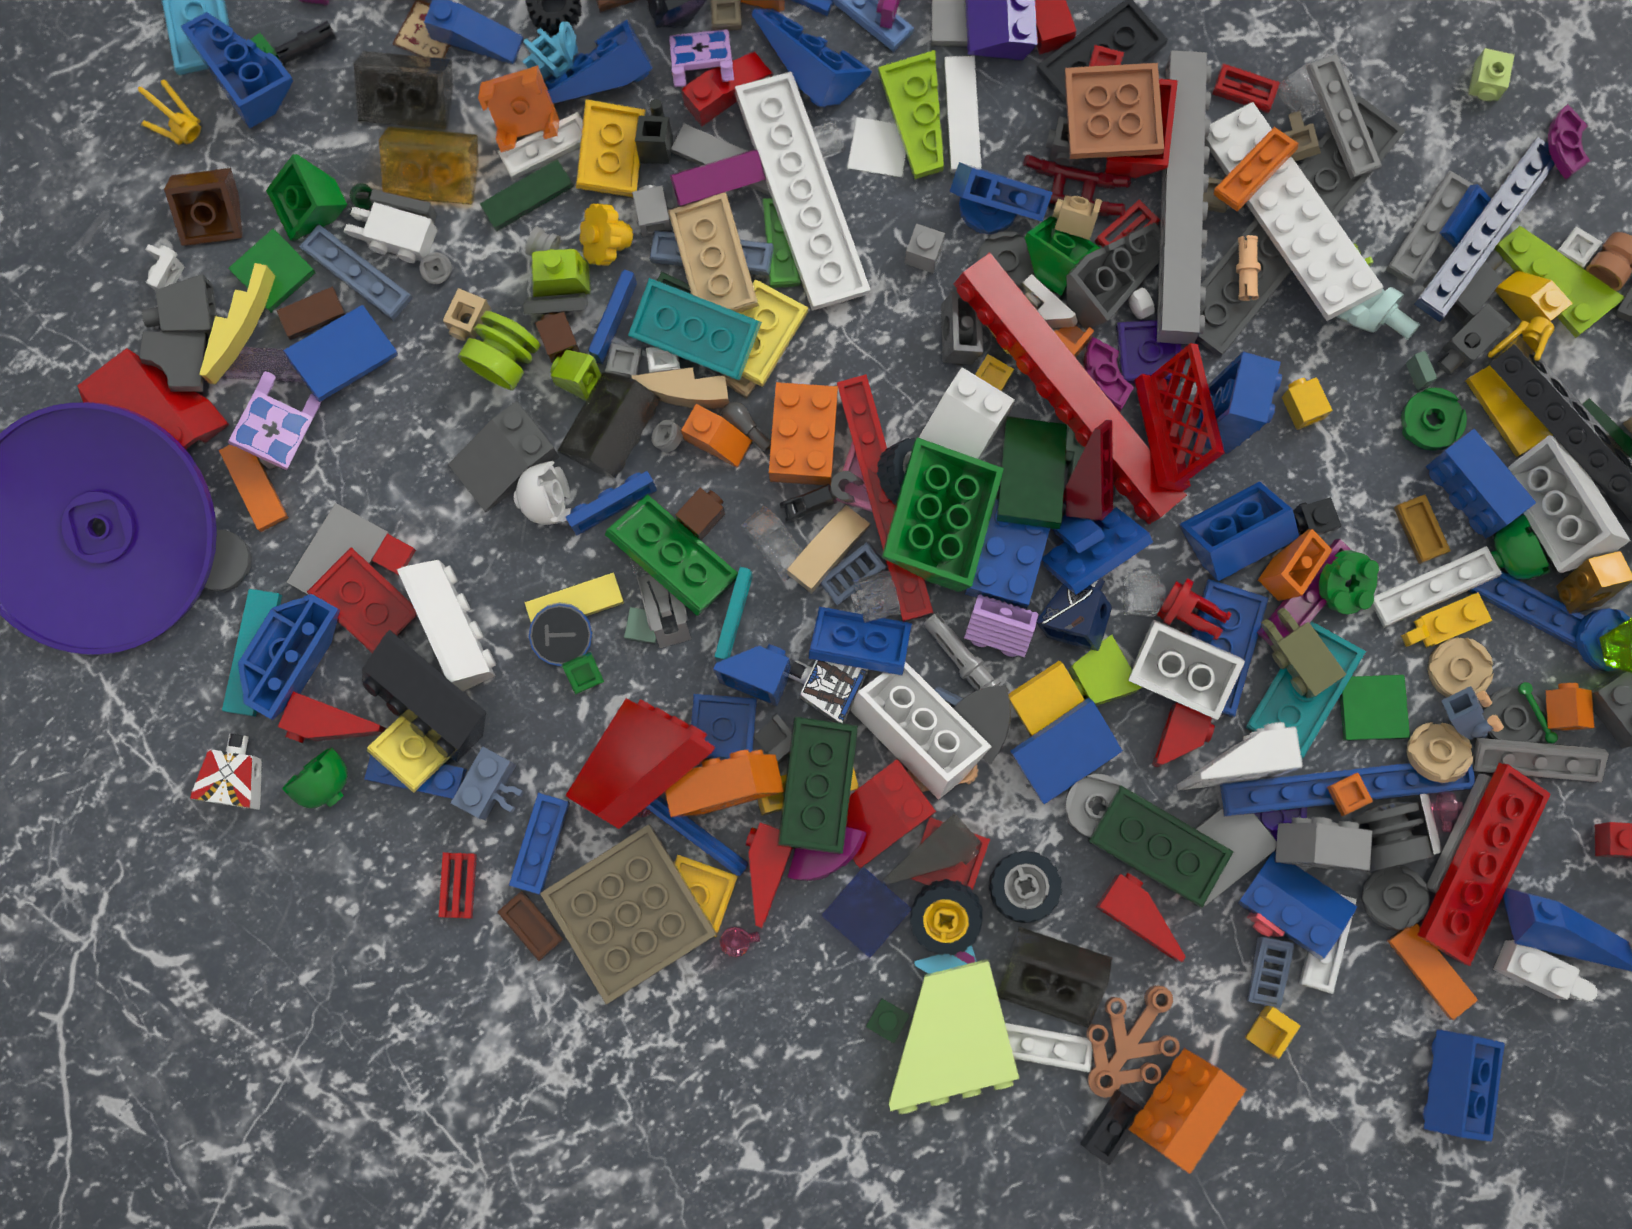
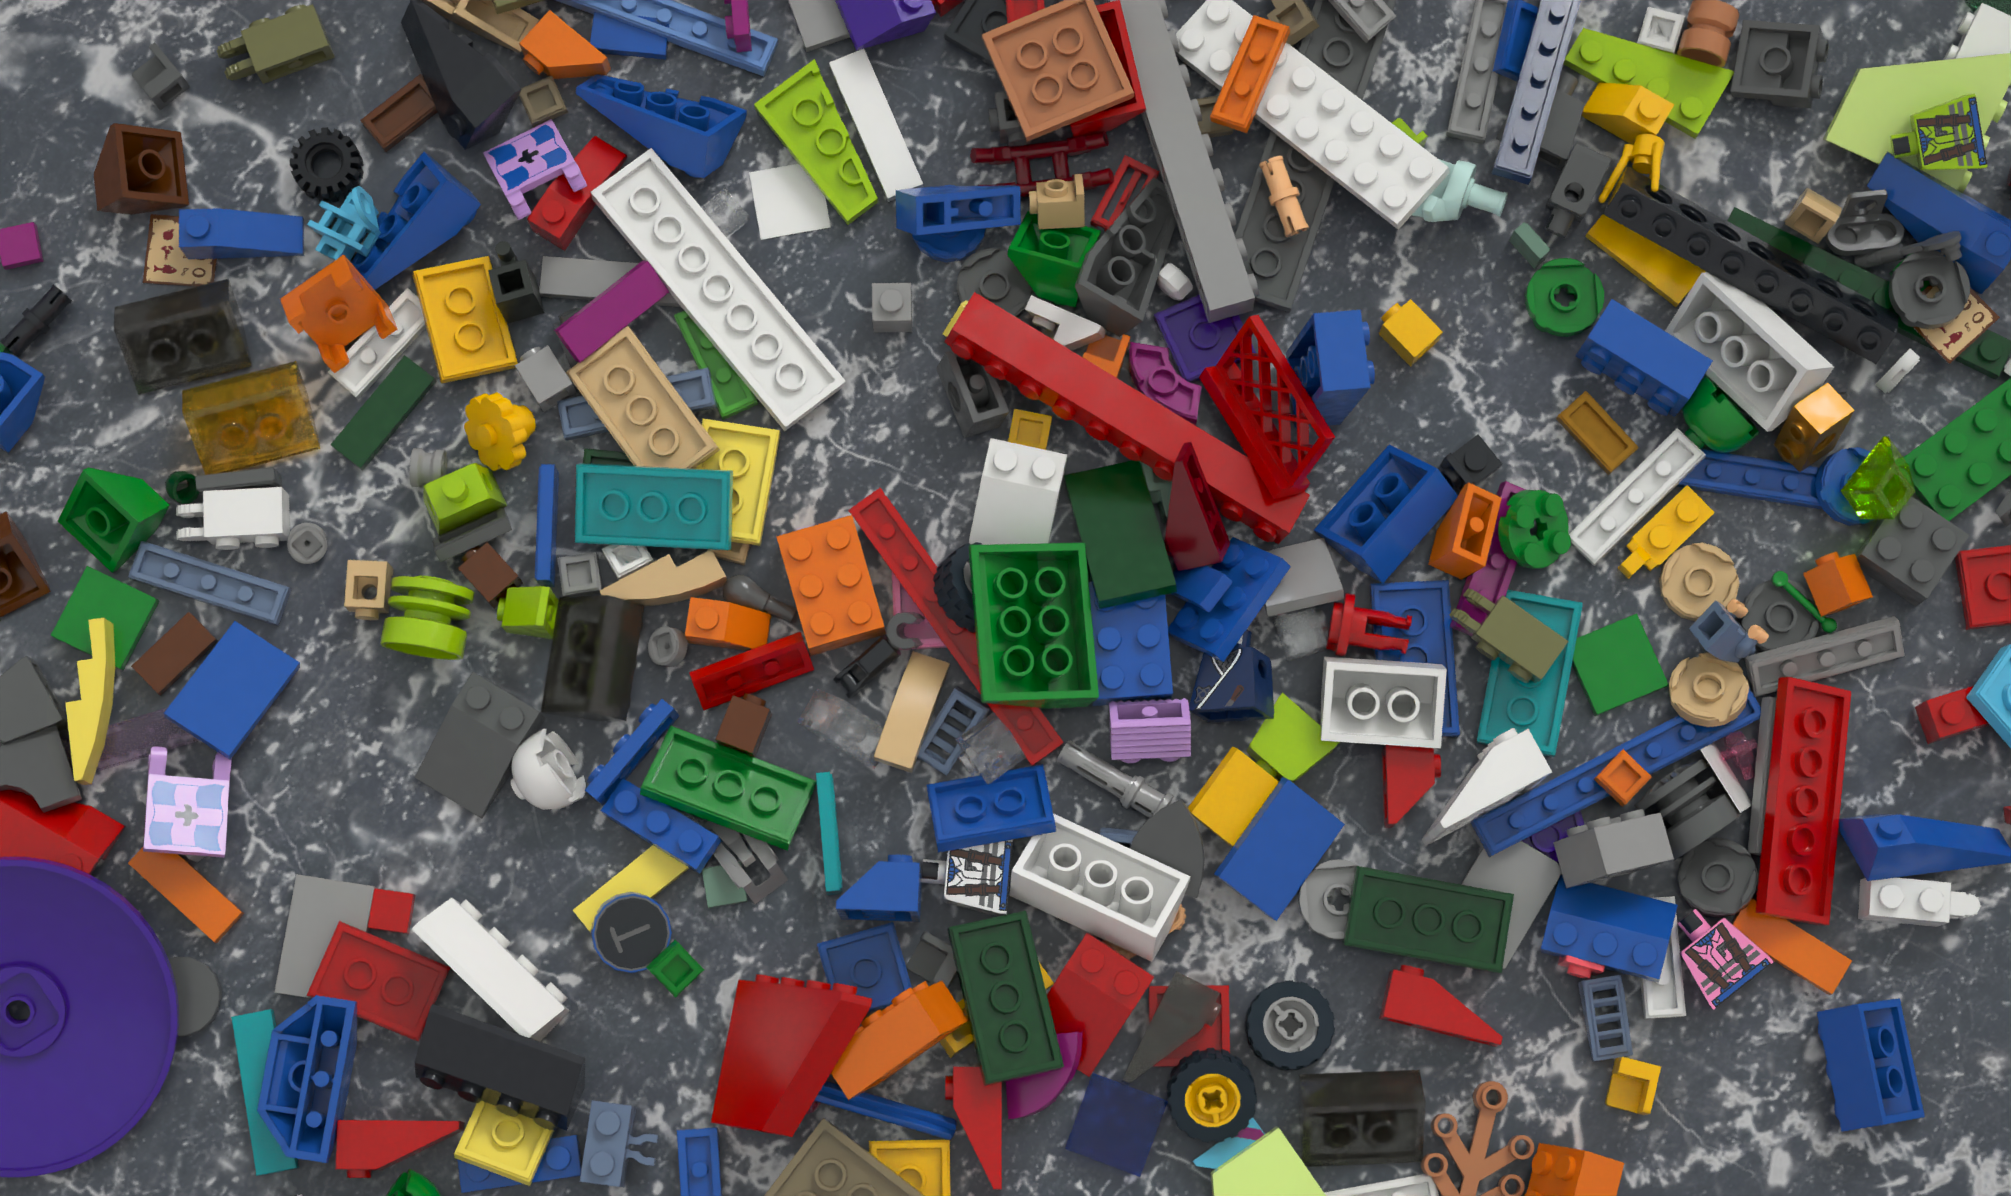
camera: 25 degrees left, 0 degrees up
(612, 565) = (661, 826): none -> blue plate
(721, 475) = (751, 670): none -> red plate
(1162, 558) = (1309, 580): none -> light grey tile
(1376, 959) = (1720, 957): none -> torso

